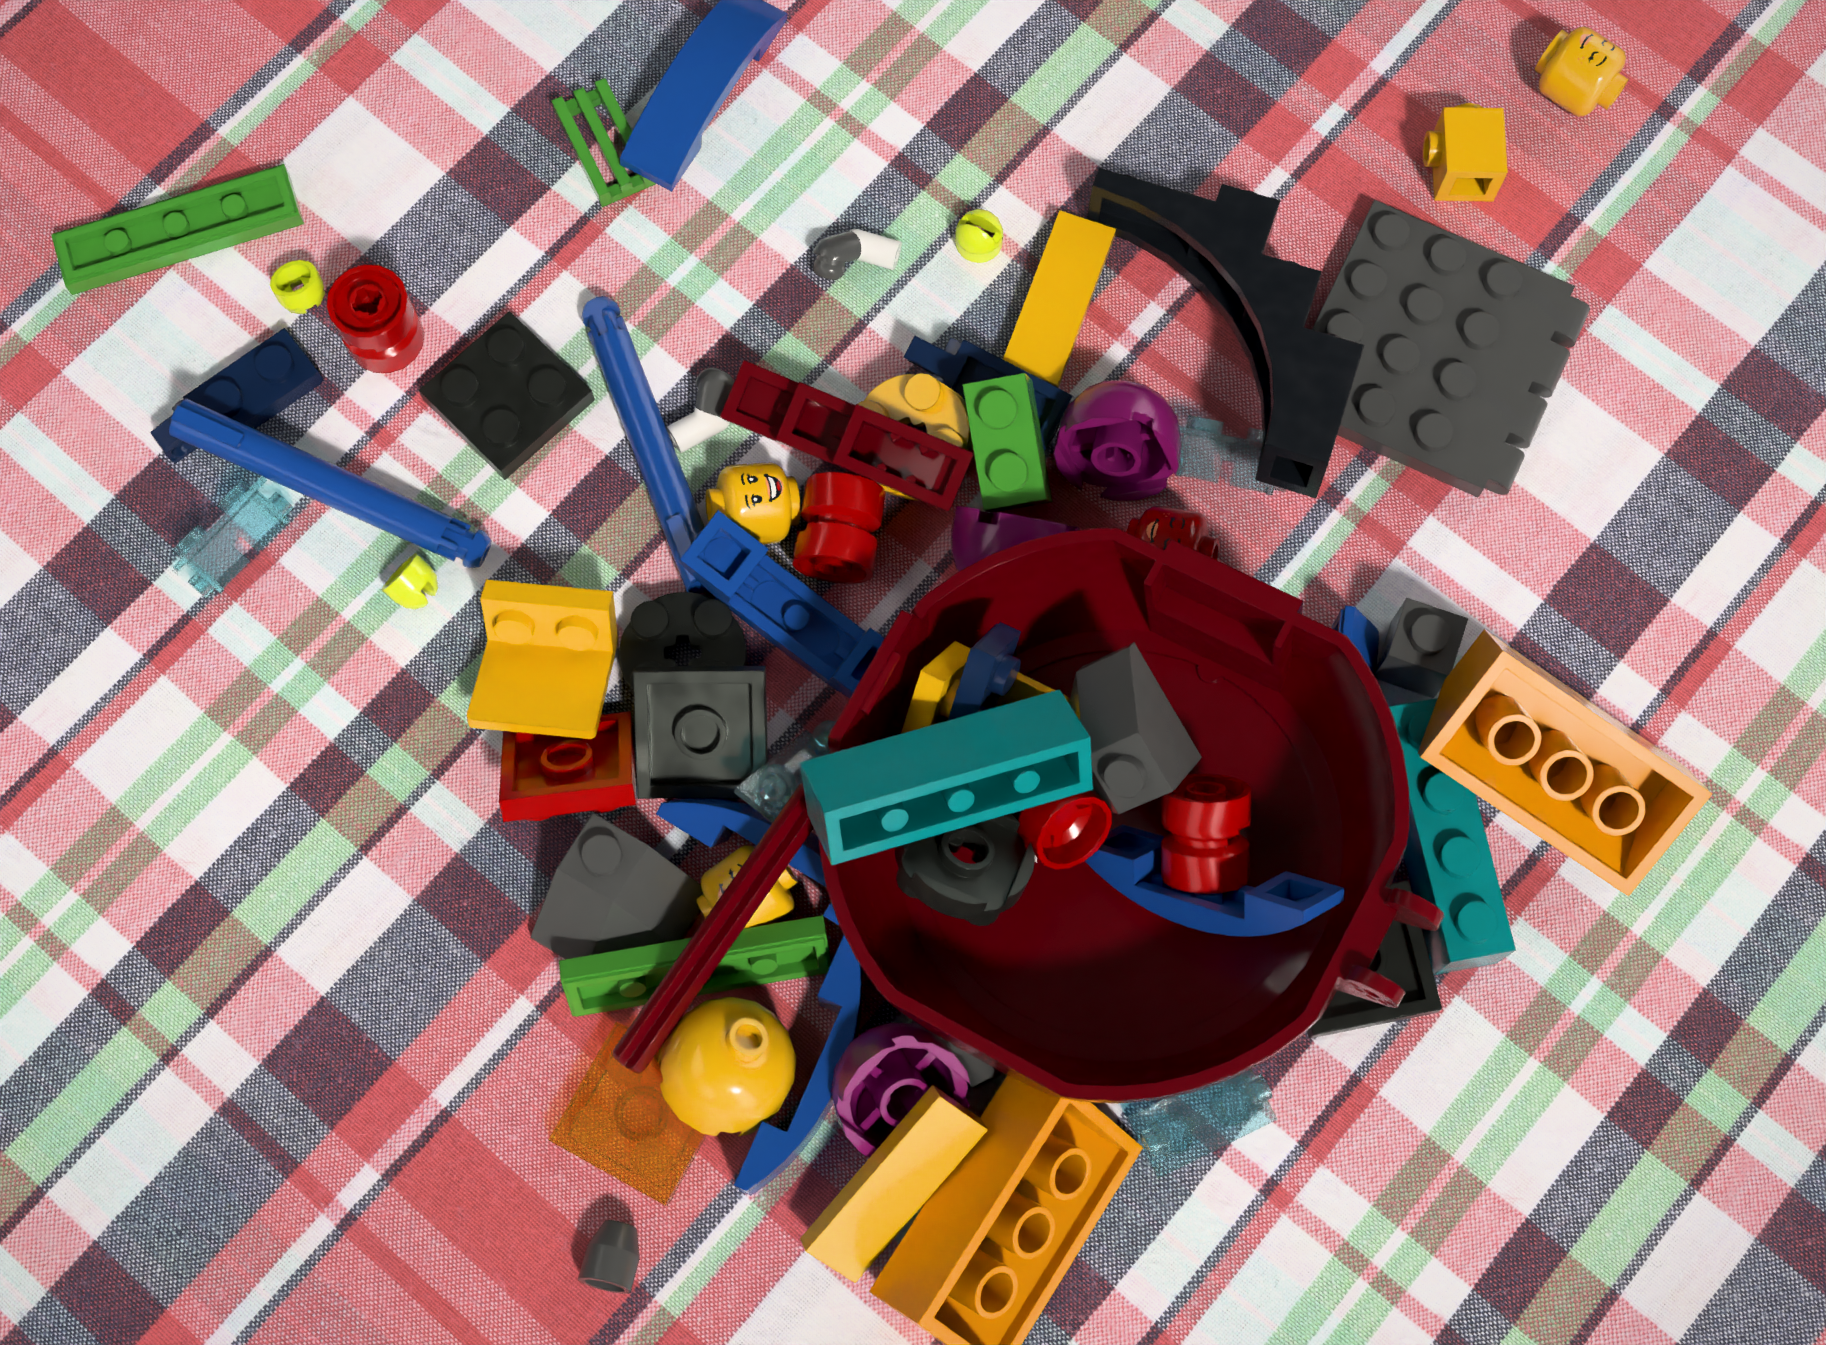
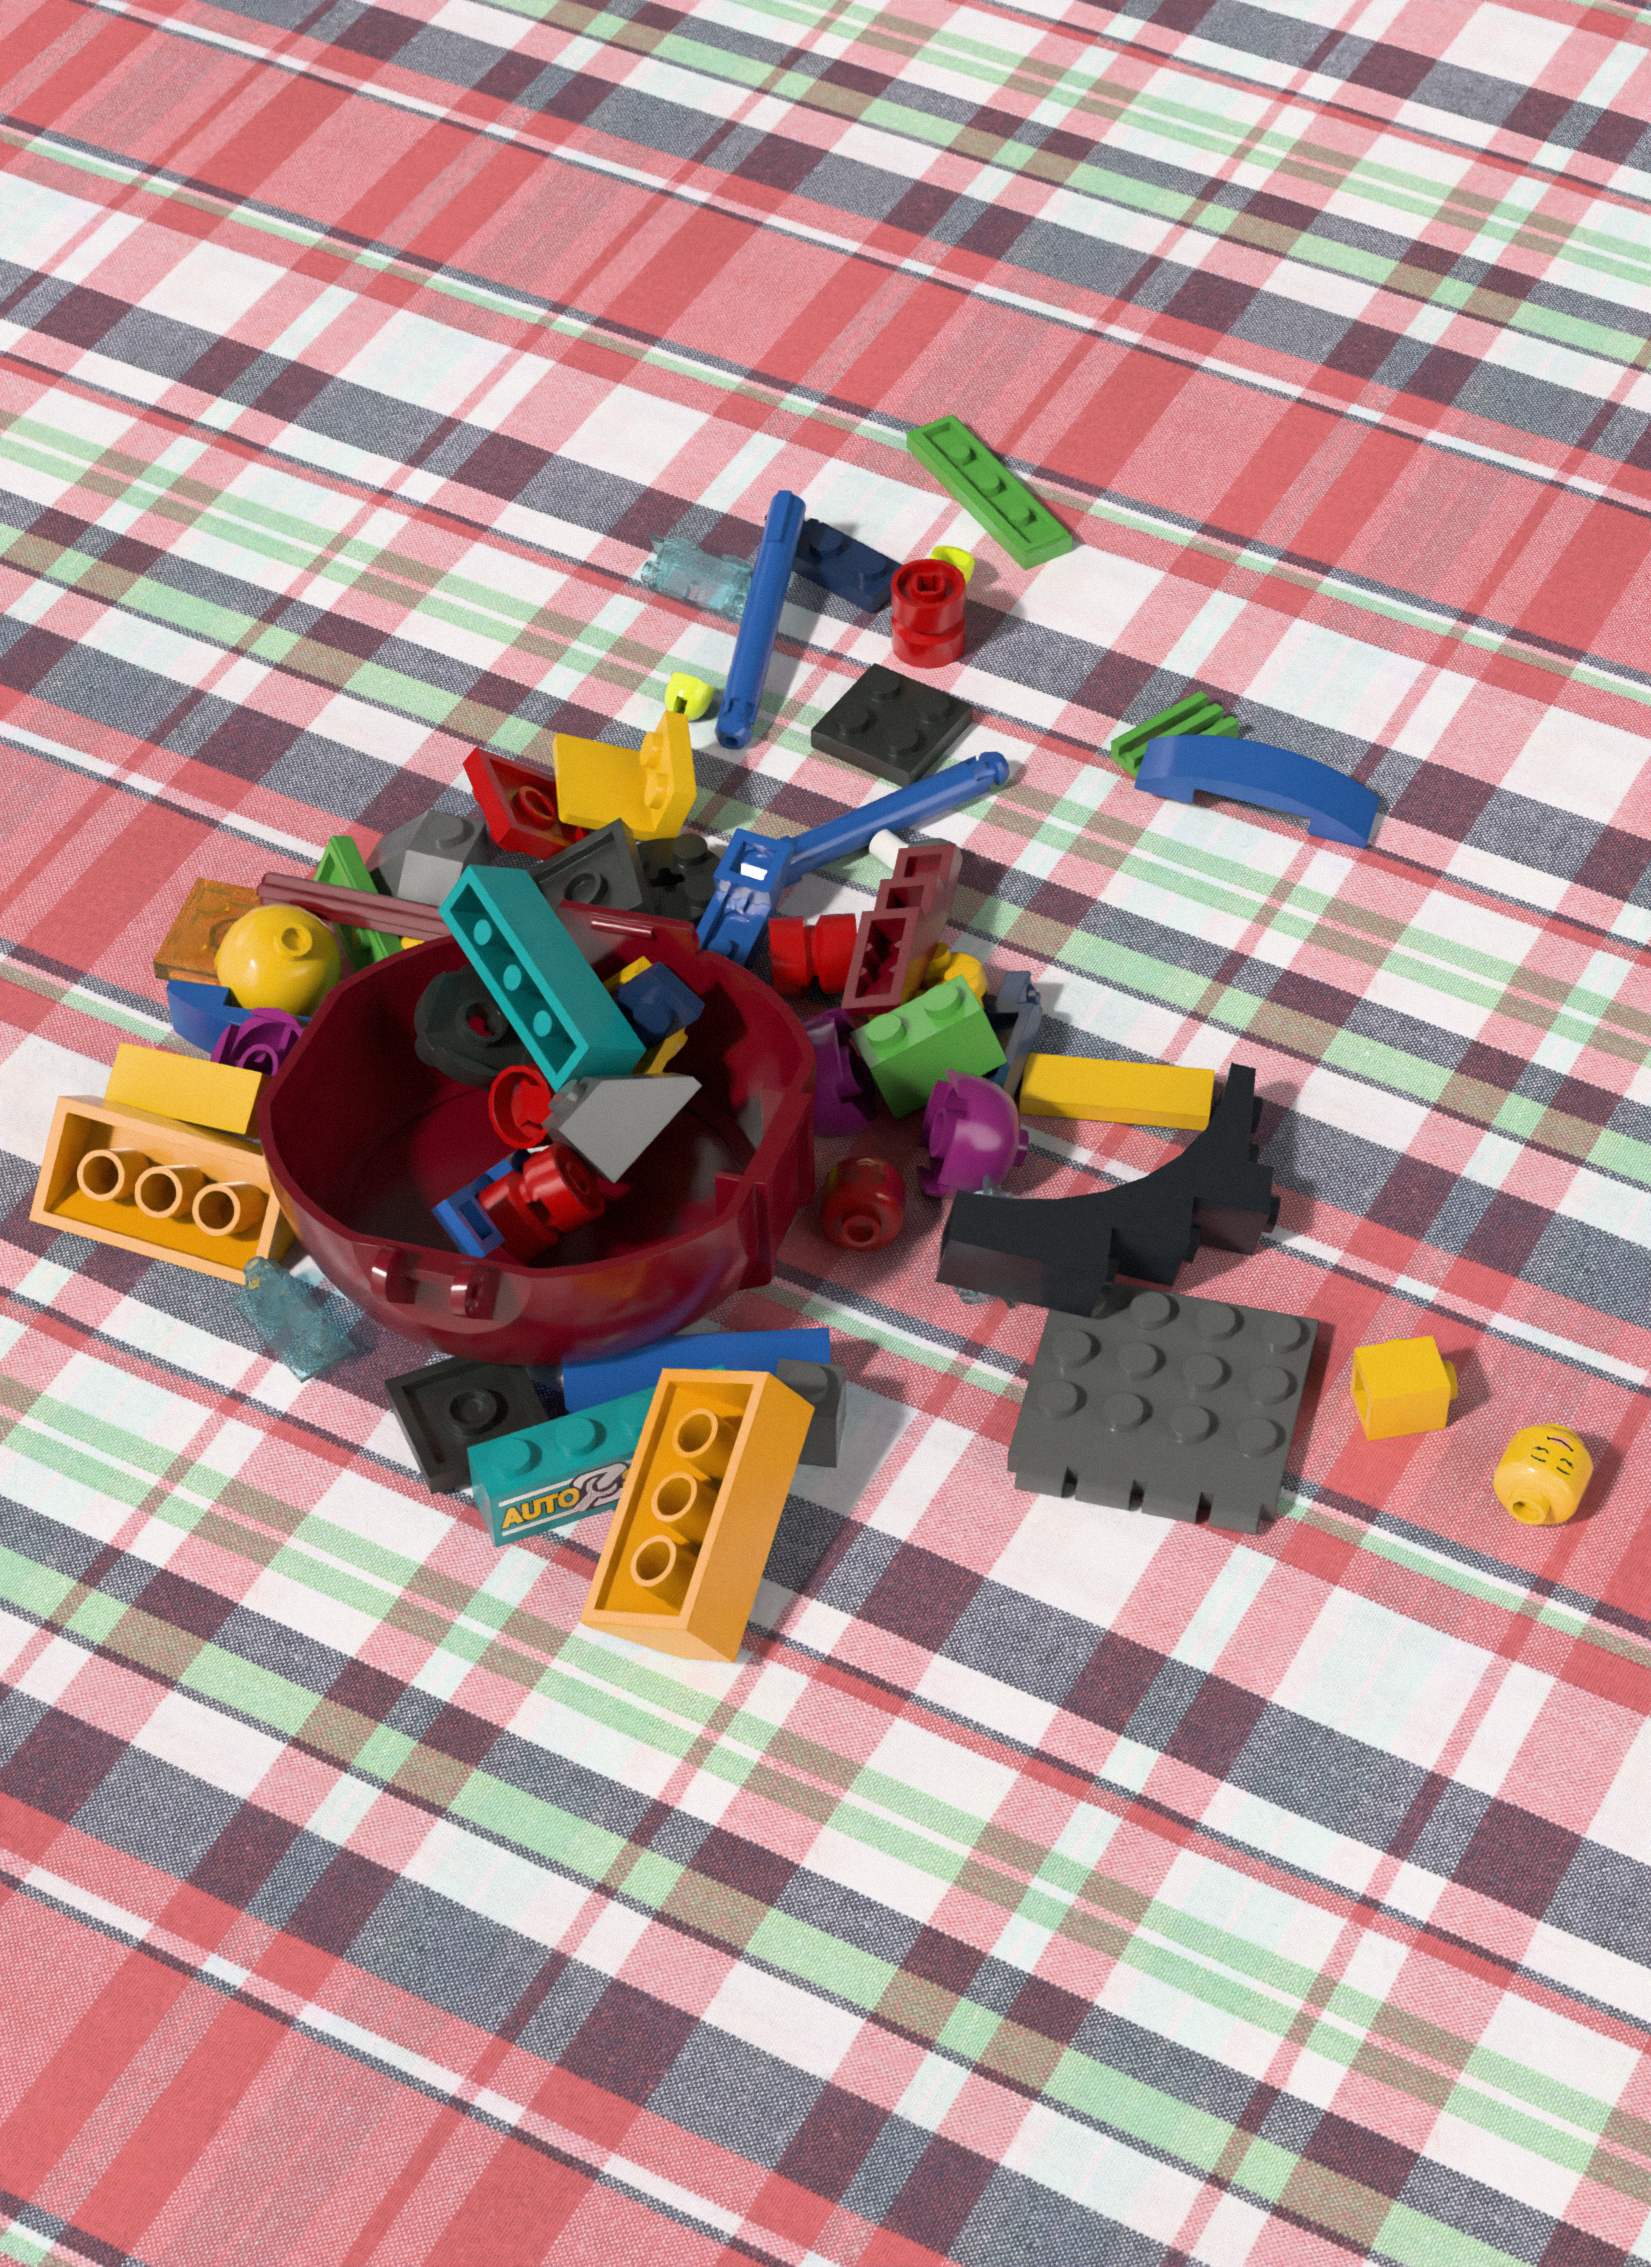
camera: 80 degrees right, 25 degrees down
(611, 1258) = (102, 938): dark grey hose -> none
(757, 500) = (823, 886): yellow head -> none
(852, 246) = (1126, 931): arm -> none
(975, 243) = (1183, 1025): neon yellow hinge -> none

